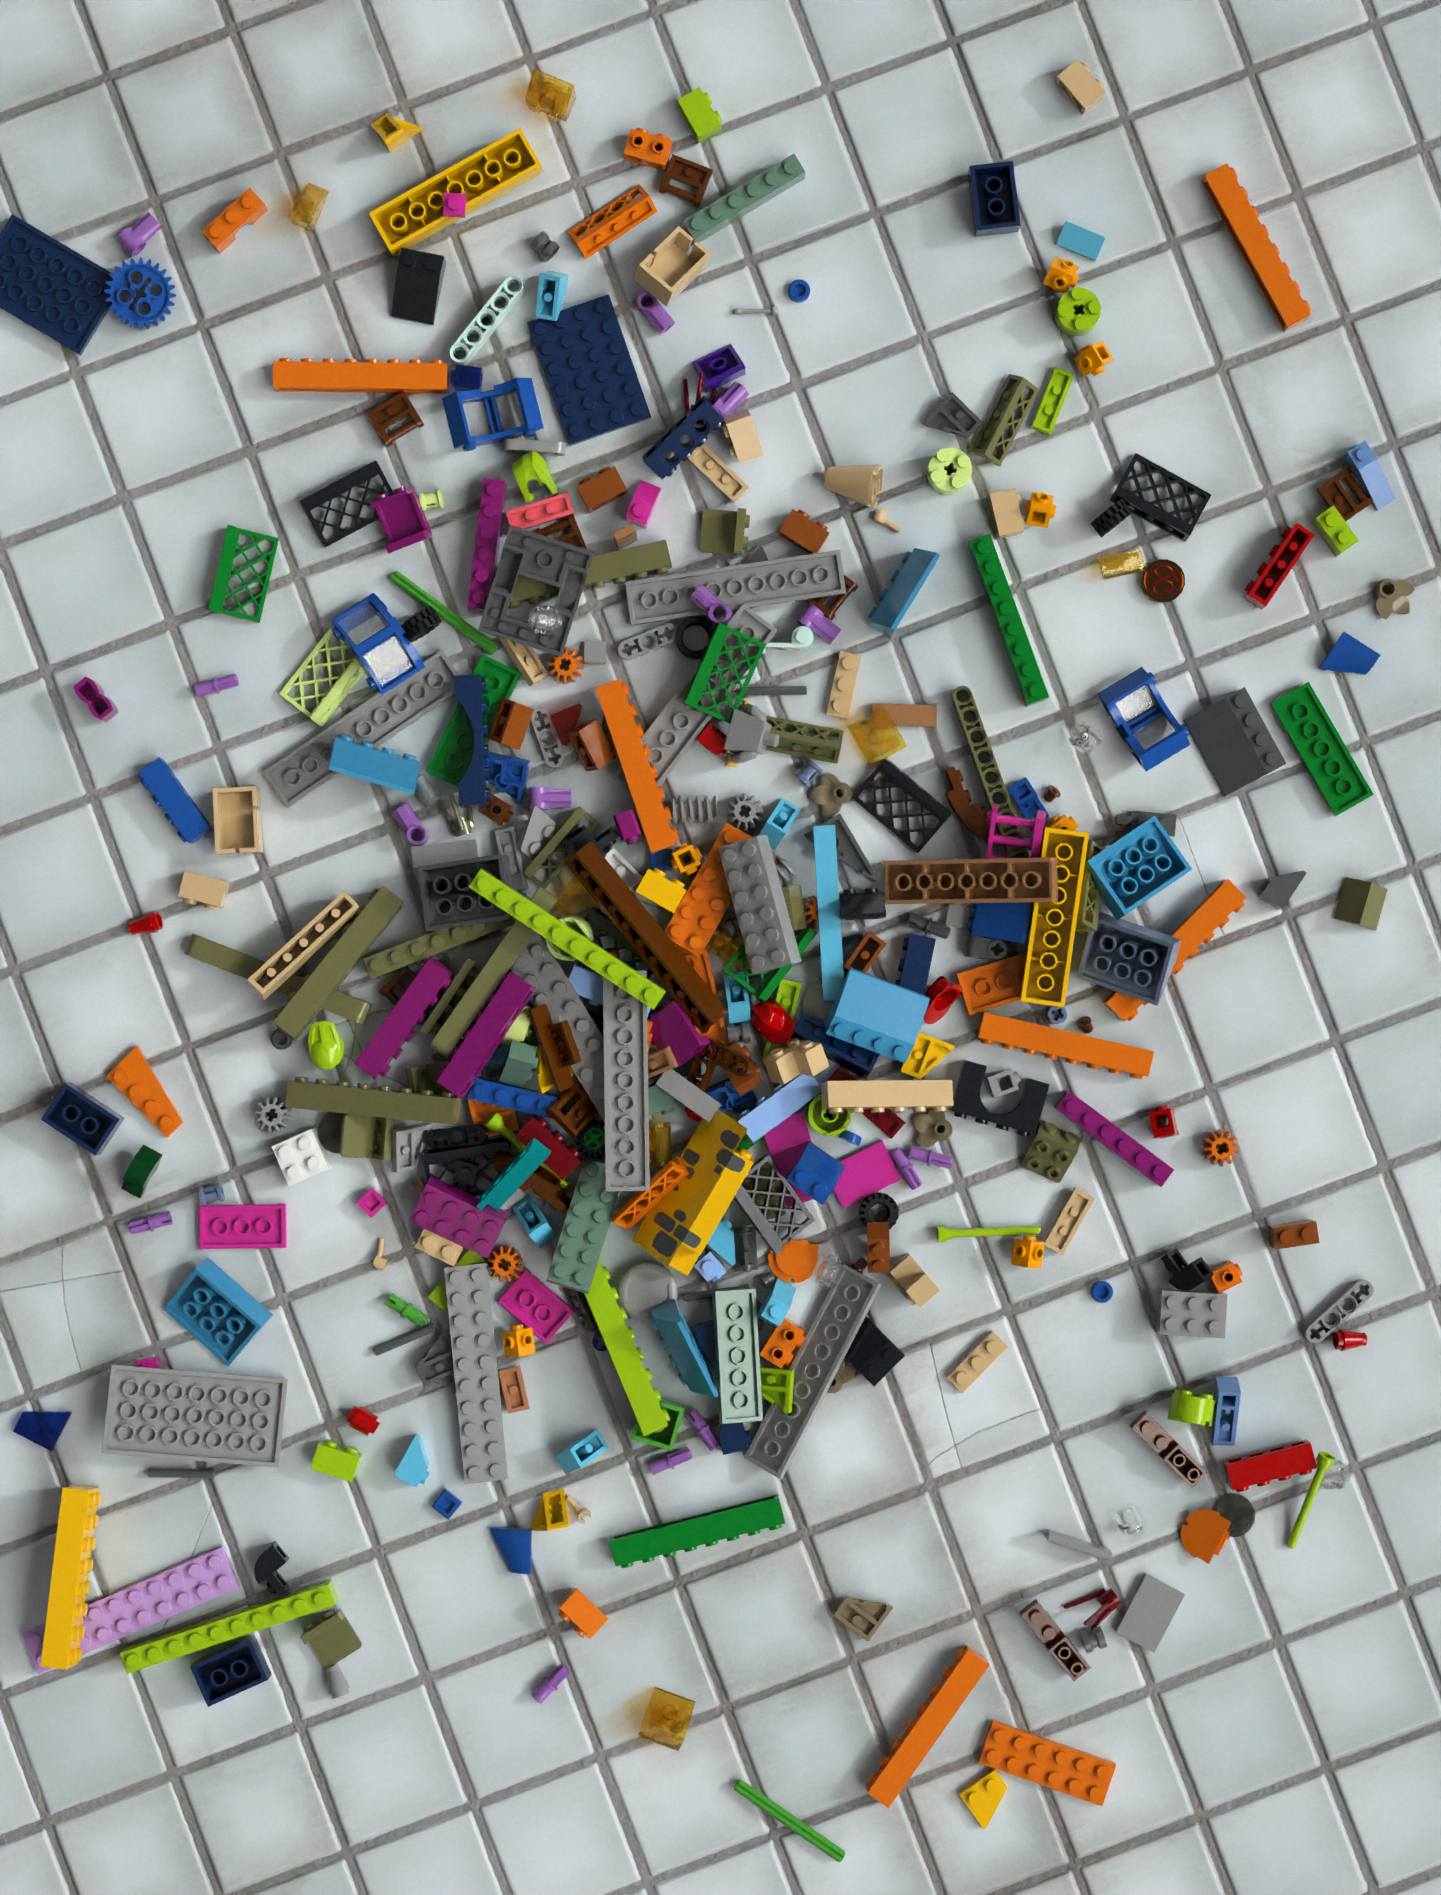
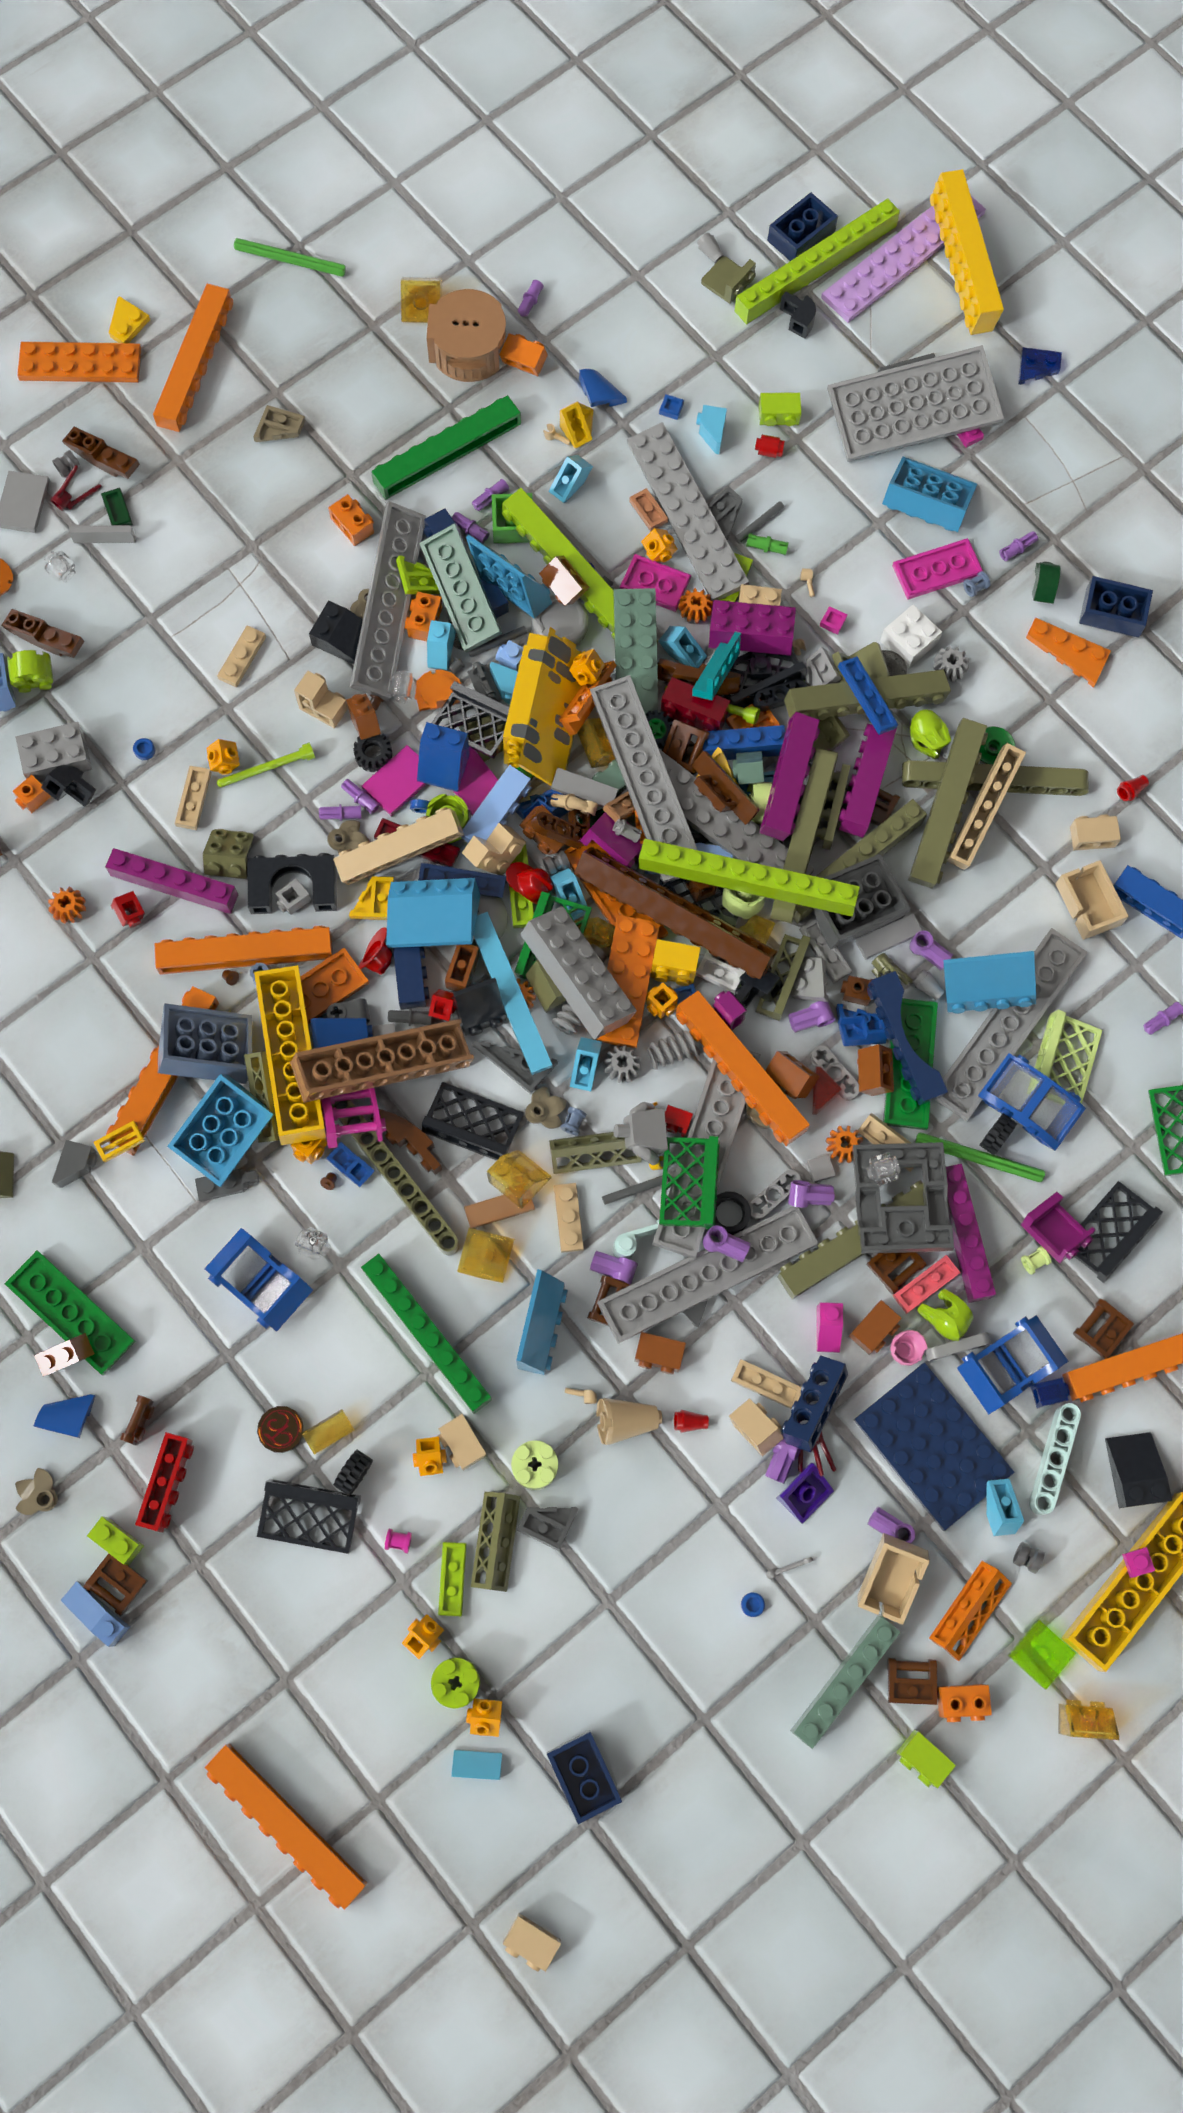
camera: 160 degrees right, 15 degrees down
(254, 1012) = (996, 738): none -> green dish
(376, 1095) = (867, 695): none -> blue tile
(565, 165) = (1041, 1654): none -> clear neon green plate
(580, 461) = (908, 1347): none -> bright pink hair
(620, 630) = (805, 1193): none -> medium lavender piece
(625, 536) = (836, 1281): medium nougat tile -> none
(633, 1321) = (563, 581): none -> brick
(640, 1633) = (466, 351): none -> medium nougat piece
(643, 1219) = (587, 667): none -> light orange brick
(667, 1038) = (626, 830): none -> light grey pin
(706, 1084) = (571, 802): none -> tan piece
(724, 531) = (739, 1327): olive bracket -> none
(798, 463) = (690, 1421): none -> red cone
(821, 1477) = (351, 519): none -> orange brick
(894, 923) = (442, 1005): none -> red brick
(931, 673) = (485, 1255): none -> clear yellow slope
(1055, 1572) = (116, 507): none -> dark green tile
(1089, 448) = (398, 1541): none -> dark pink bush
(1216, 893) = (132, 1125): none -> yellow tile
(1234, 741) = (160, 1290): dark grey slope -> none
(1291, 621) = (135, 1427): none -> reddish brown plate
(1336, 708) = (64, 1354): none -> brick

